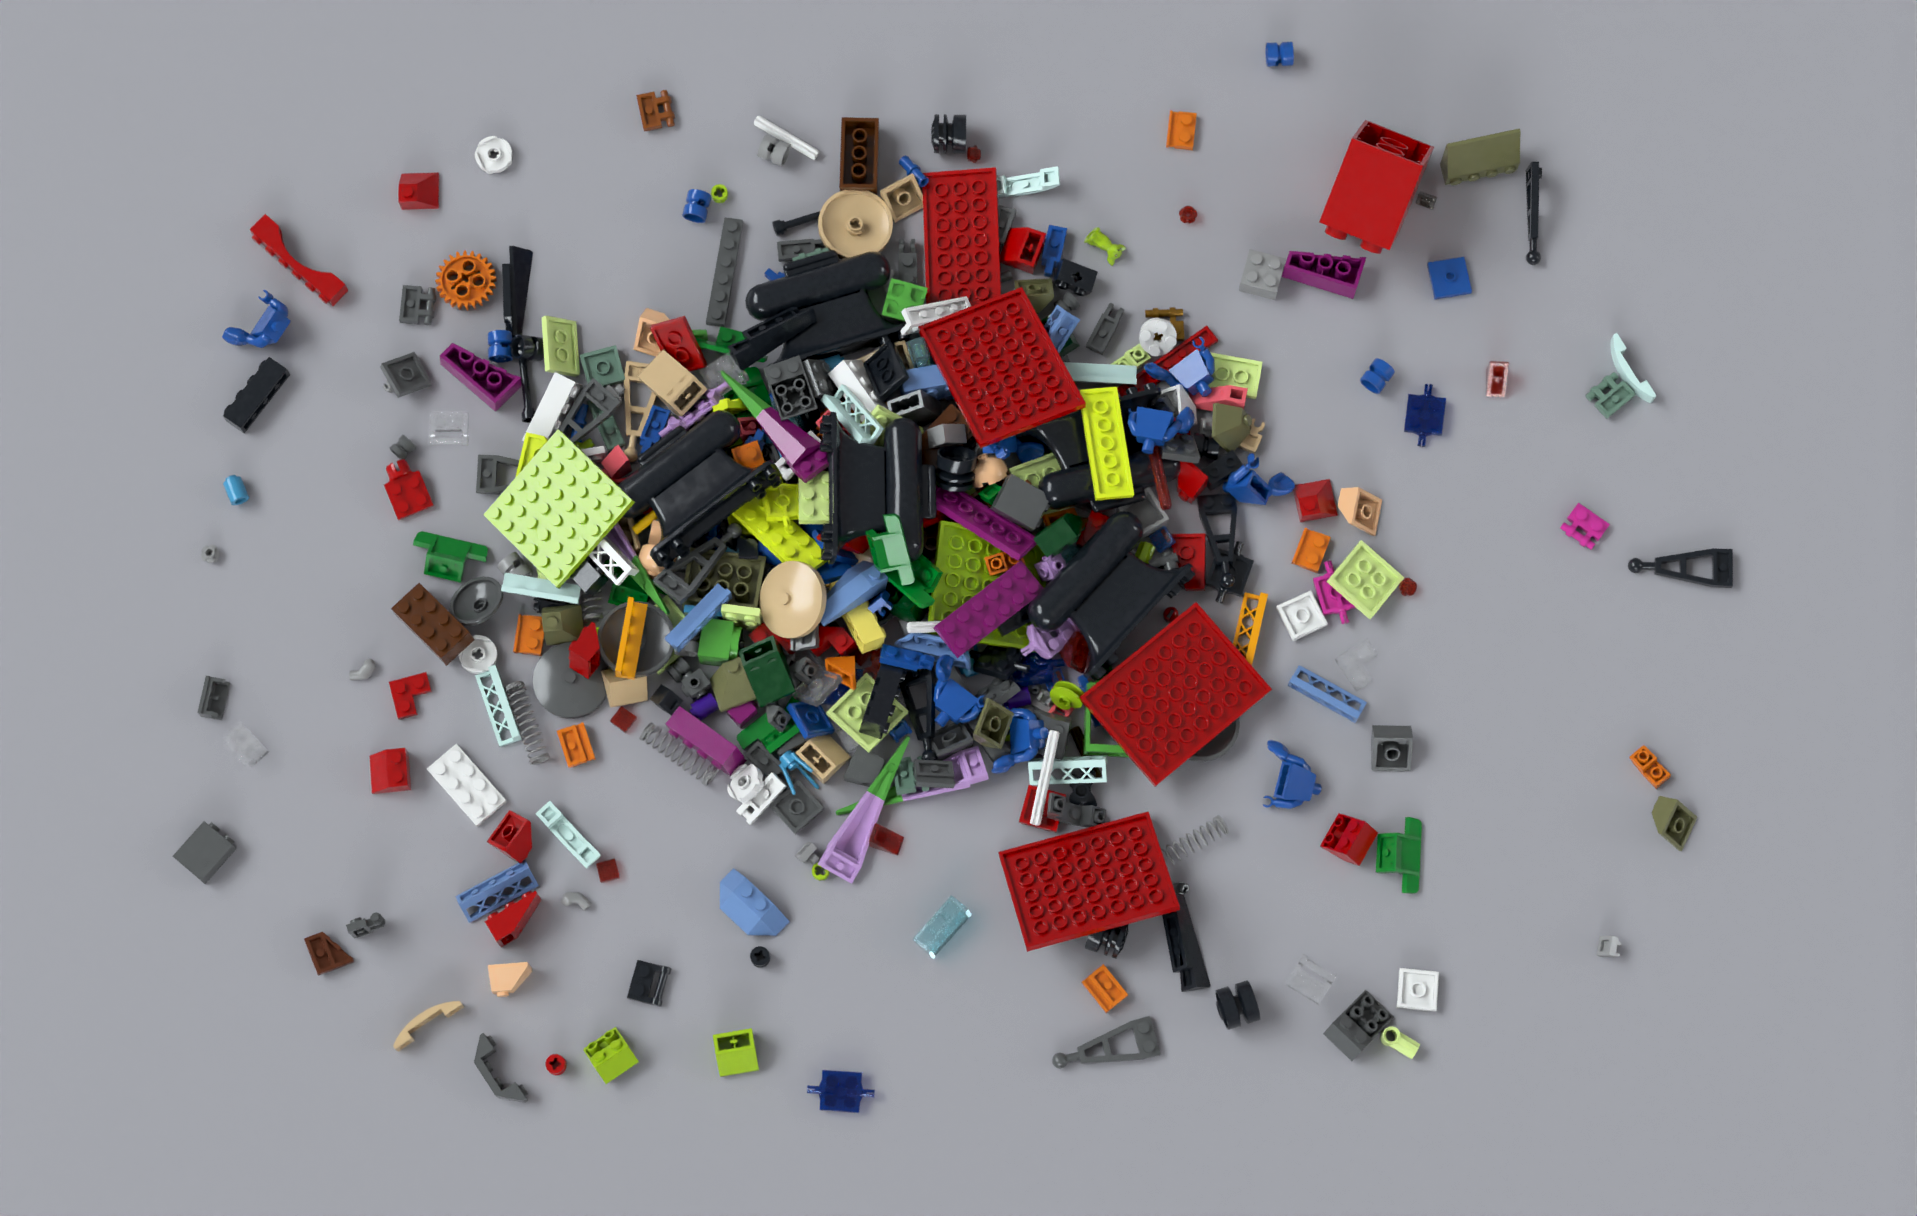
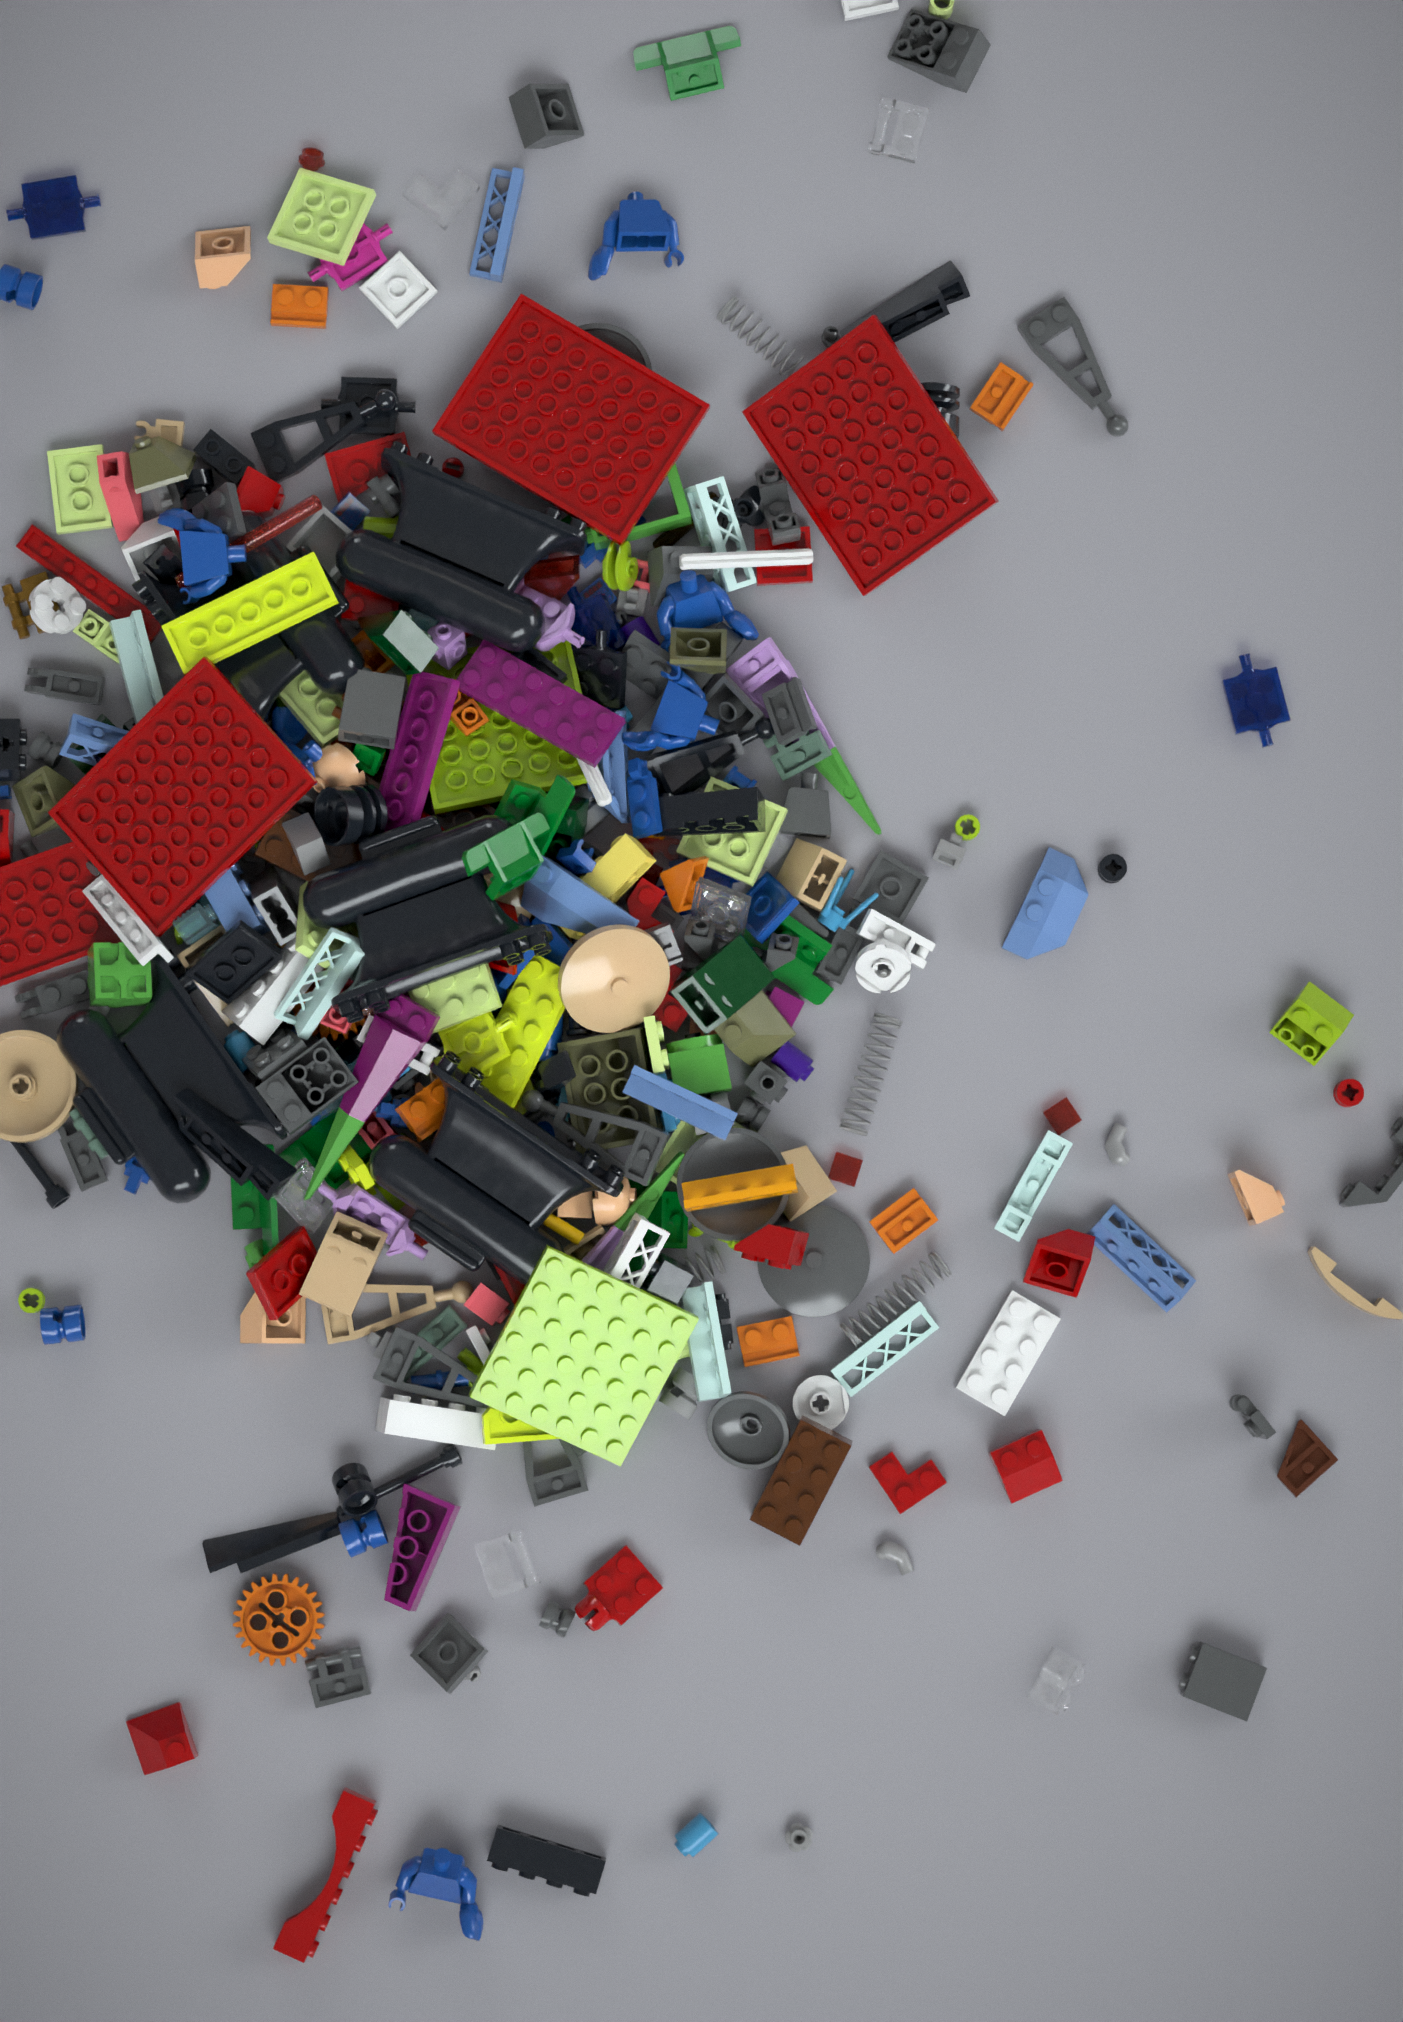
camera: 110 degrees left, 10 degrees up
(213, 698) = (1003, 1751): dark grey hinge -> none
(448, 555) = (691, 1497): green plate -> none
(497, 164) = (74, 1665): white plate -> none
(511, 921) = (1184, 1221): red slope -> none
(560, 346) = (336, 1445): yellowish green plate -> none
(562, 623) = (741, 1297): olive slope -> none
(603, 366) = (347, 1375): sand green plate -> none
(642, 982) = (1199, 1016): black plate -> none
(655, 423) = (415, 1271): blue hinge -> none
(666, 699) = (801, 1116): black brick -> none
(705, 741) = (842, 1042): magenta wedge -> none
(724, 272) = (147, 1252): dark grey plate -> none
(735, 1052) = (1251, 856): lime slope -> none
(850, 843) = (920, 797): lavender plate -> none
(885, 840) = (897, 753): clear red slope -> none
(942, 926) = (992, 635): clear light blue brick -> none
(1192, 372) = (98, 542): blue torso -> none
(1231, 1006) = (973, 217): black wheel -> none
(1251, 488) = (240, 406): blue torso -> none
(1253, 638) = (435, 346): light orange fence -> none
(1315, 500) = (225, 322): red slope -> none
(1349, 839) = (691, 135): red slope -> none

